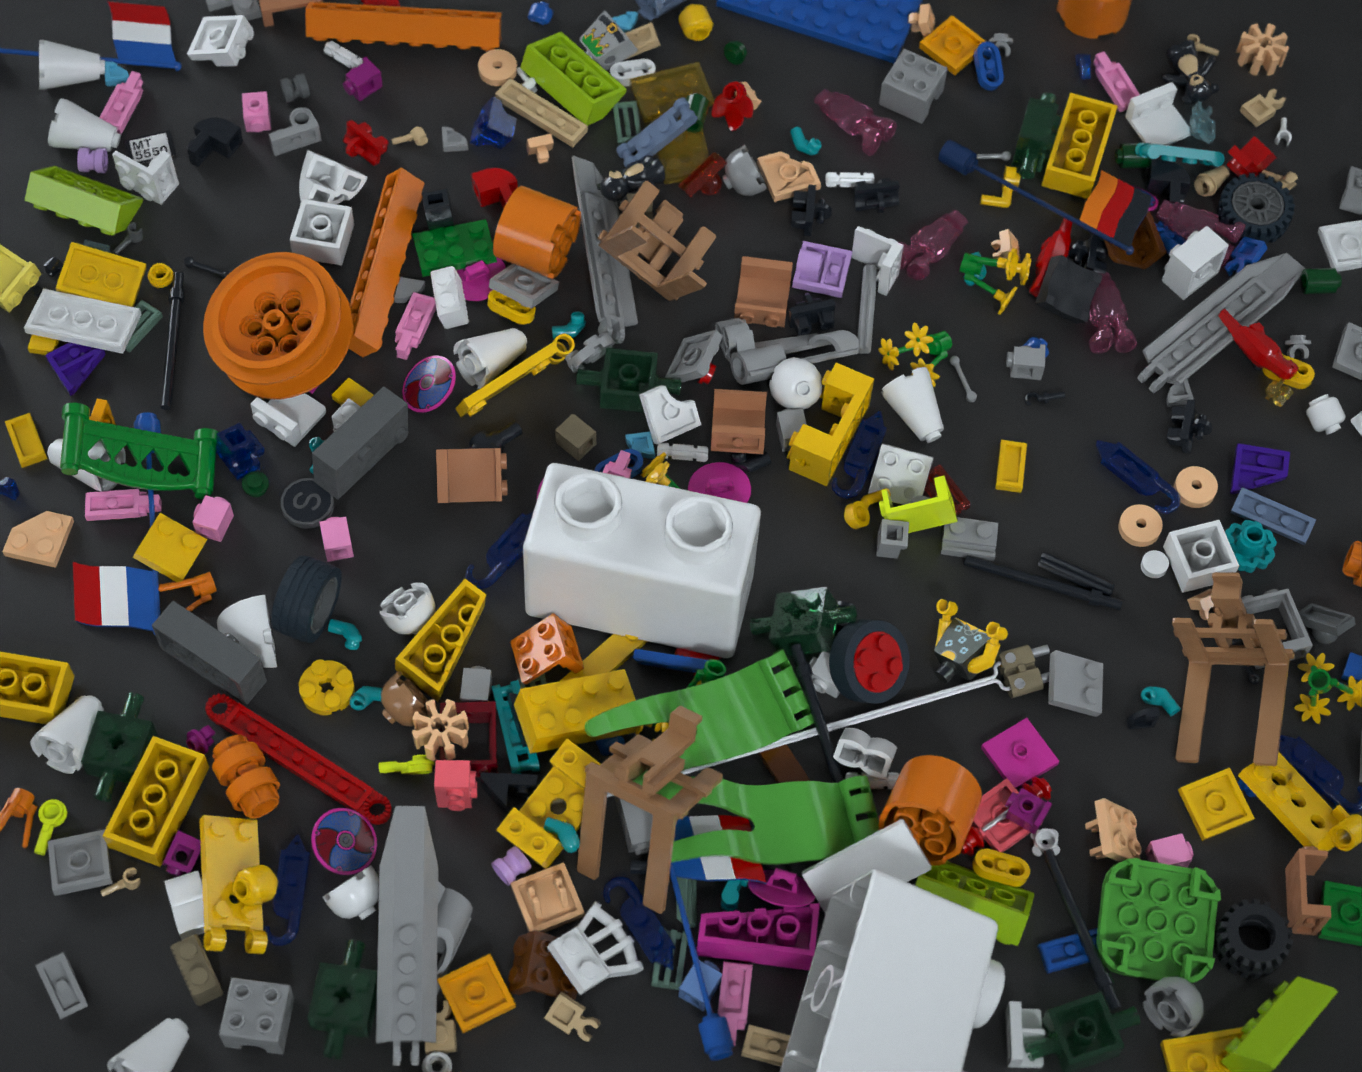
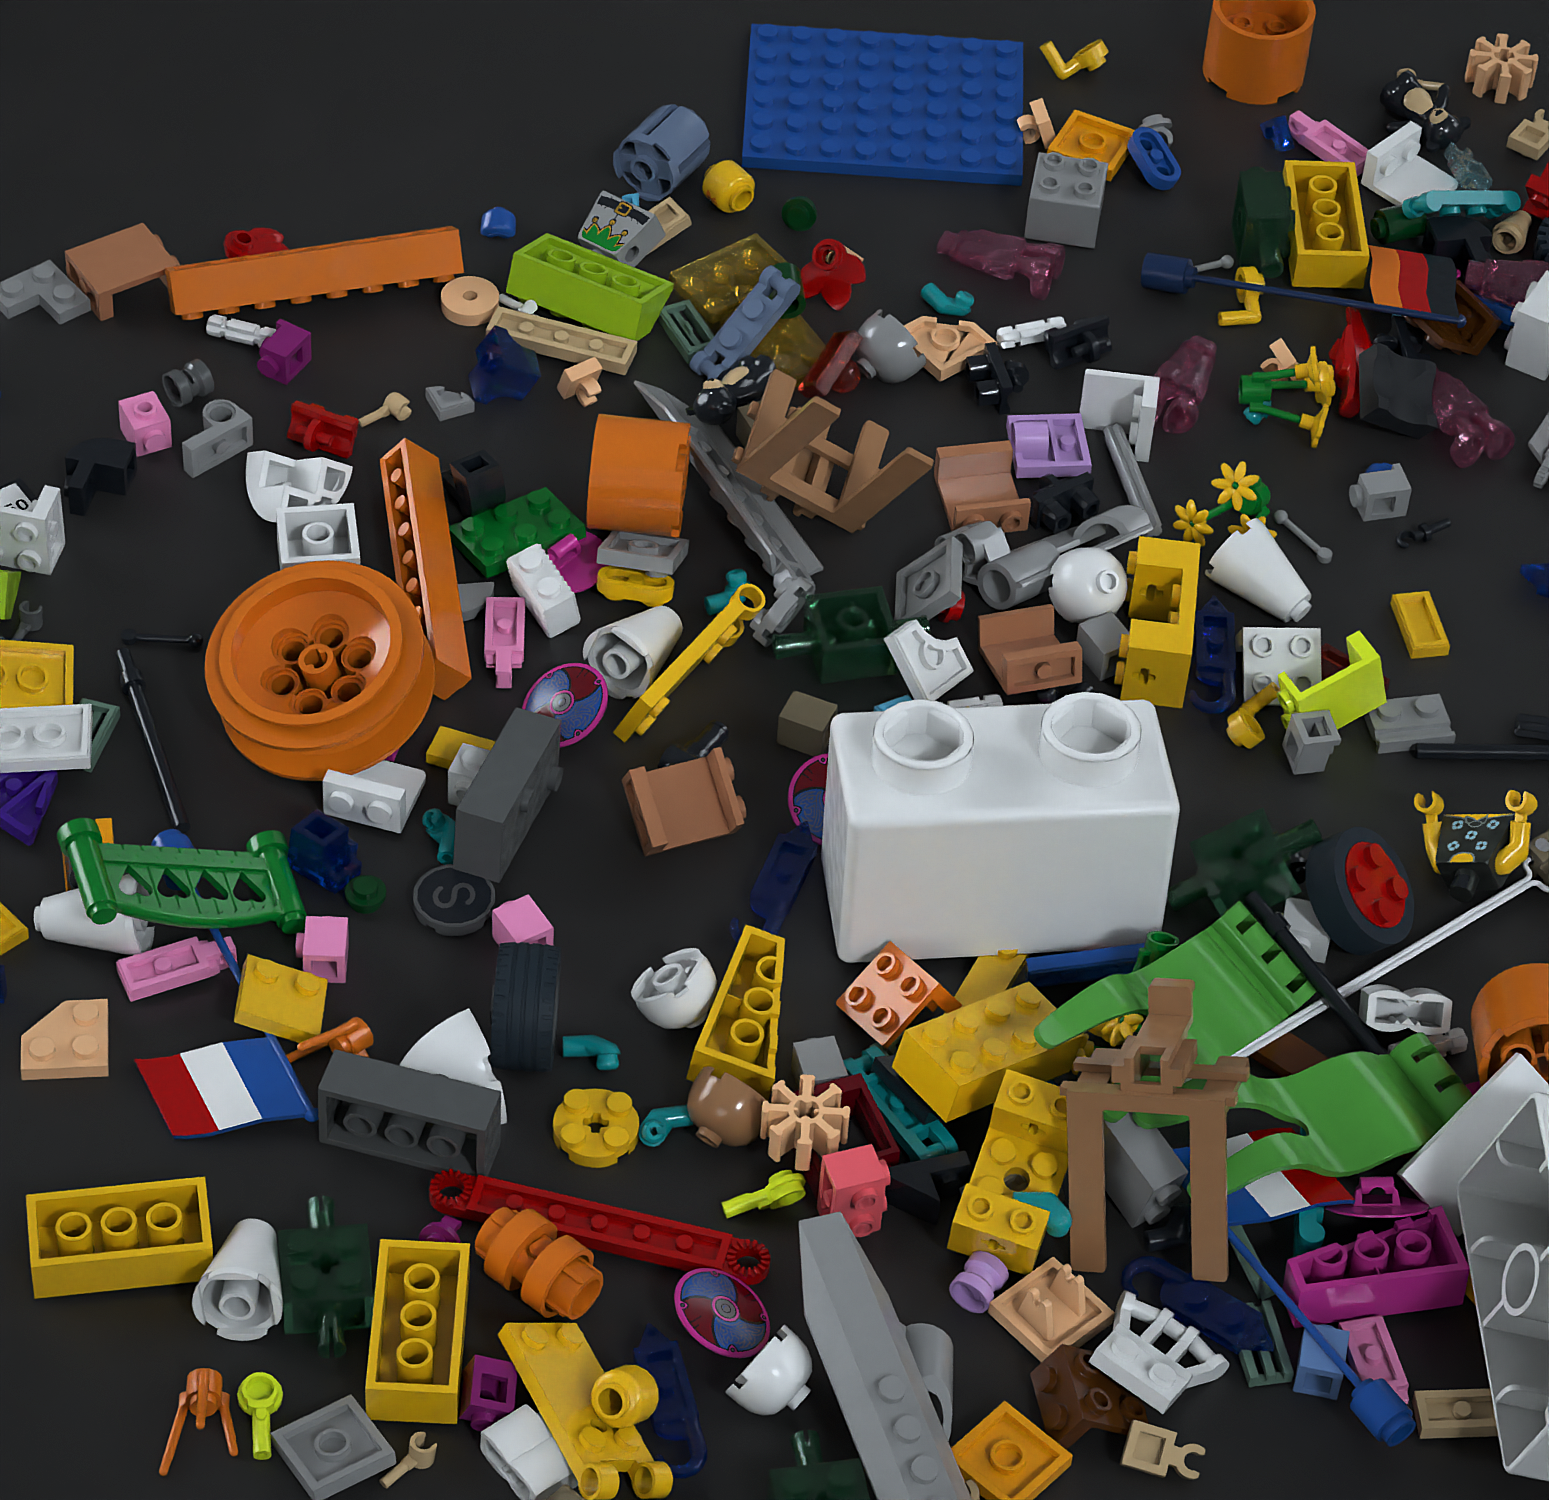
camera: 20 degrees left, 15 degrees down
(160, 270) = (95, 660): yellow plate -> none
(221, 40) = (50, 344): white plate -> none
(493, 186) = (545, 442): red brick -> none
(631, 69) = (667, 260): white beam -> none

